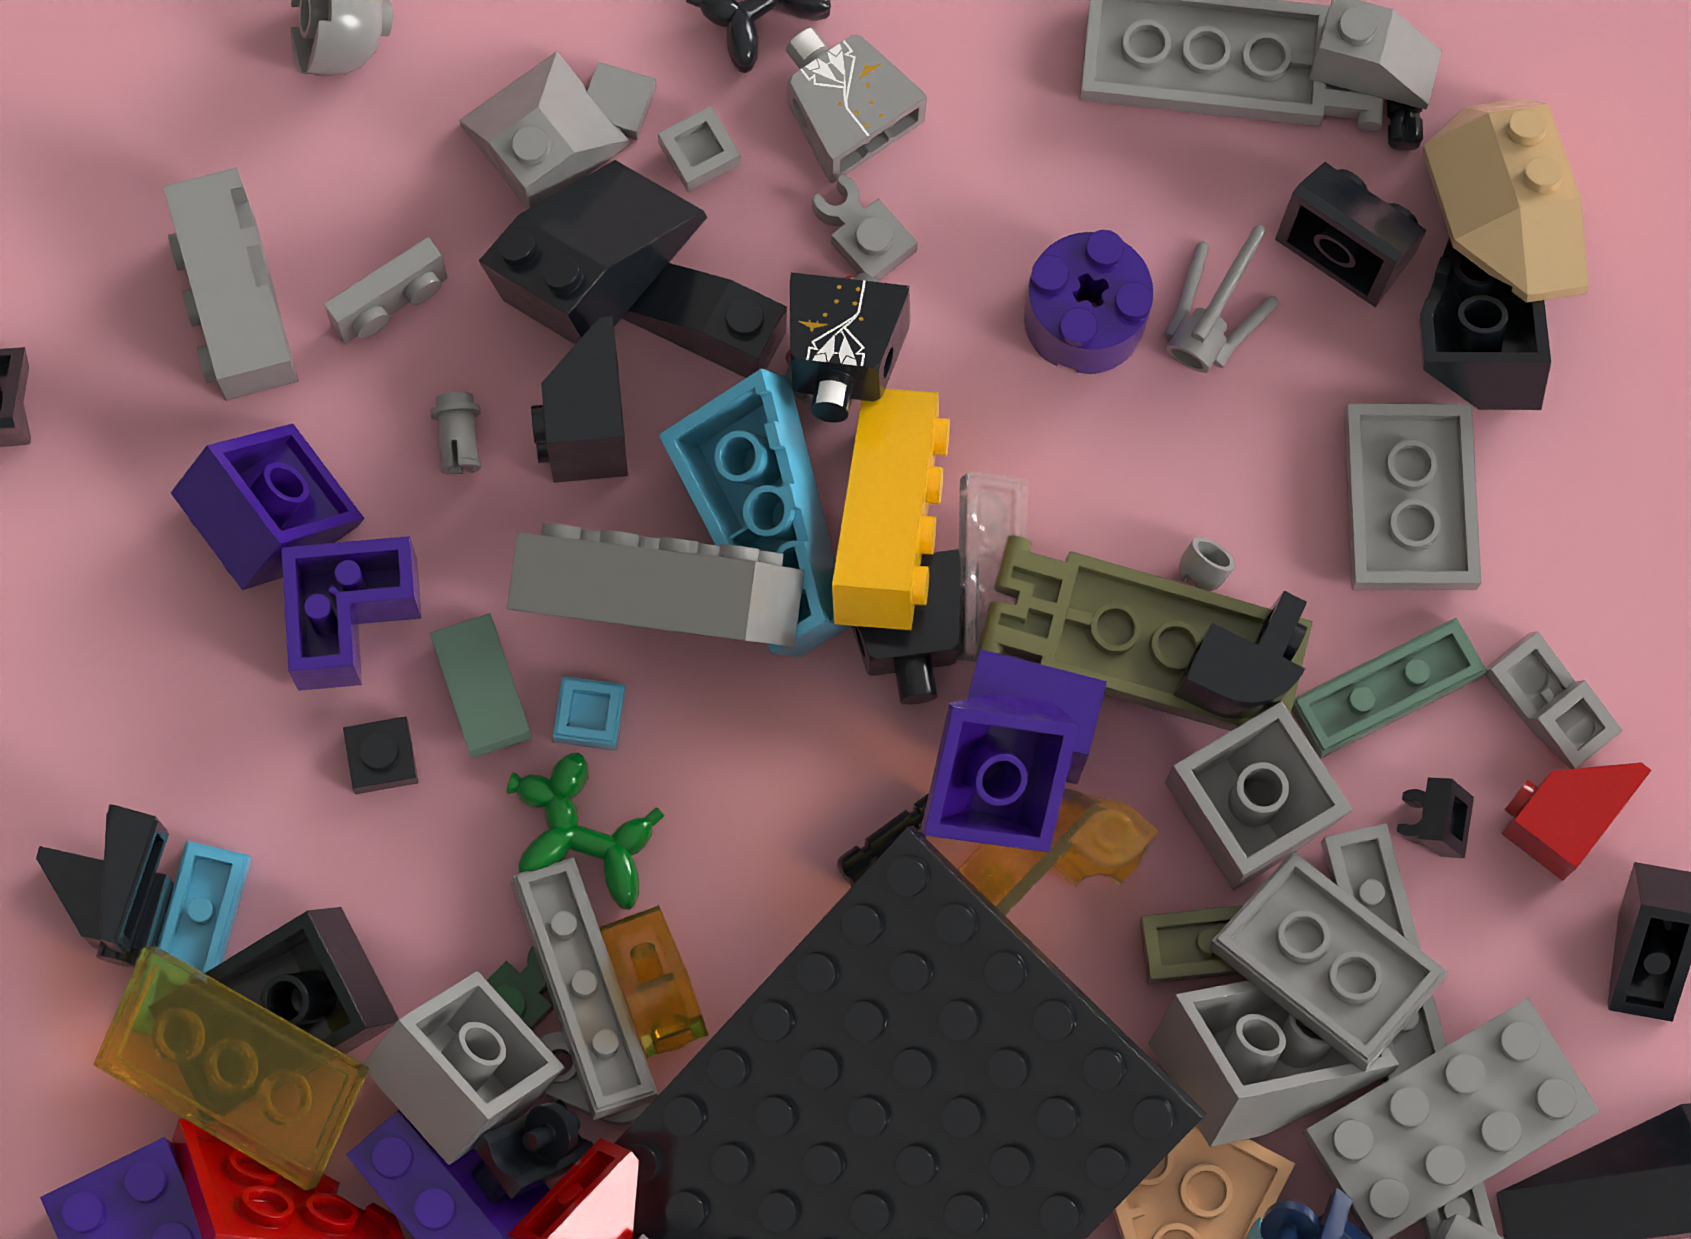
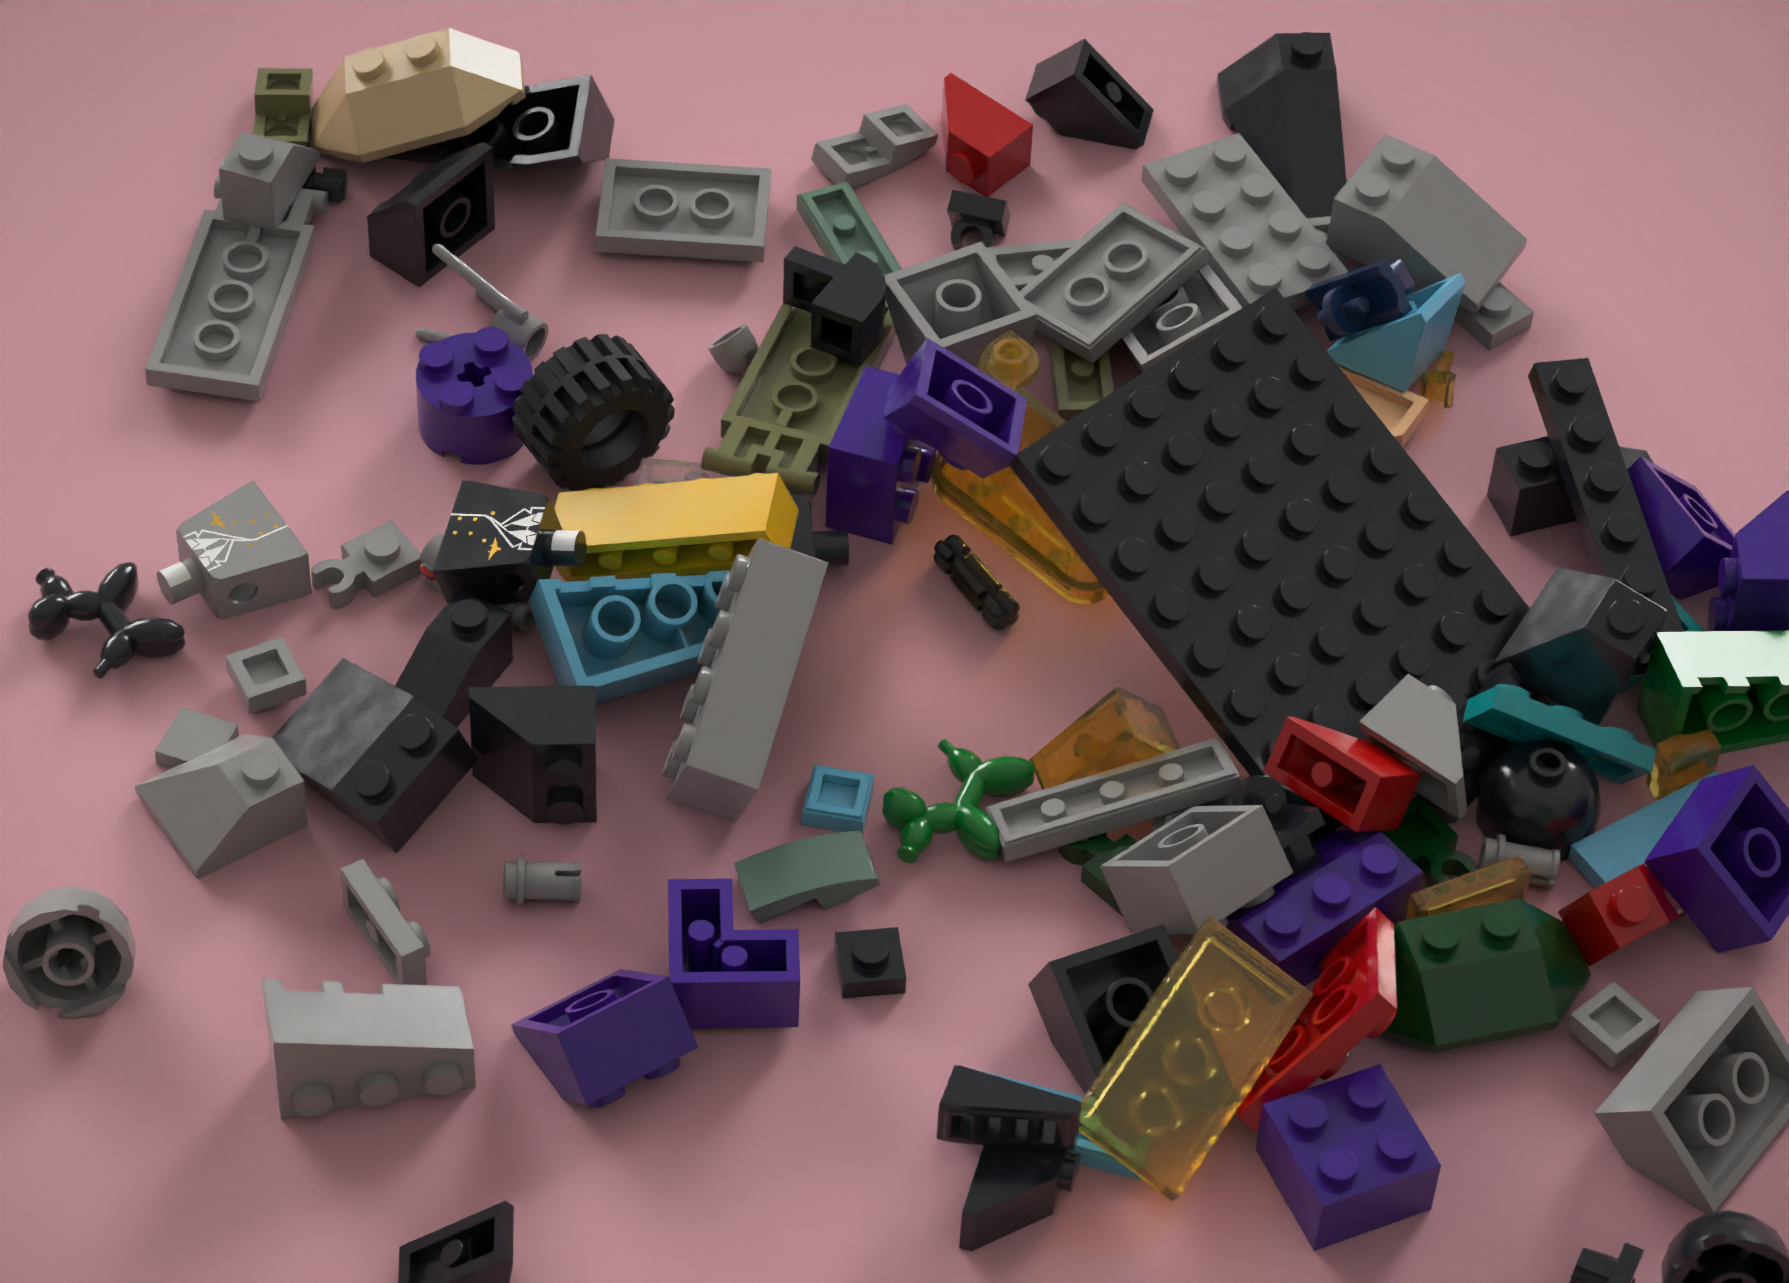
camera: 85 degrees left, 25 degrees down
(1046, 414) = (593, 413): none -> black tyre
(1519, 68) = (284, 104): none -> olive slope

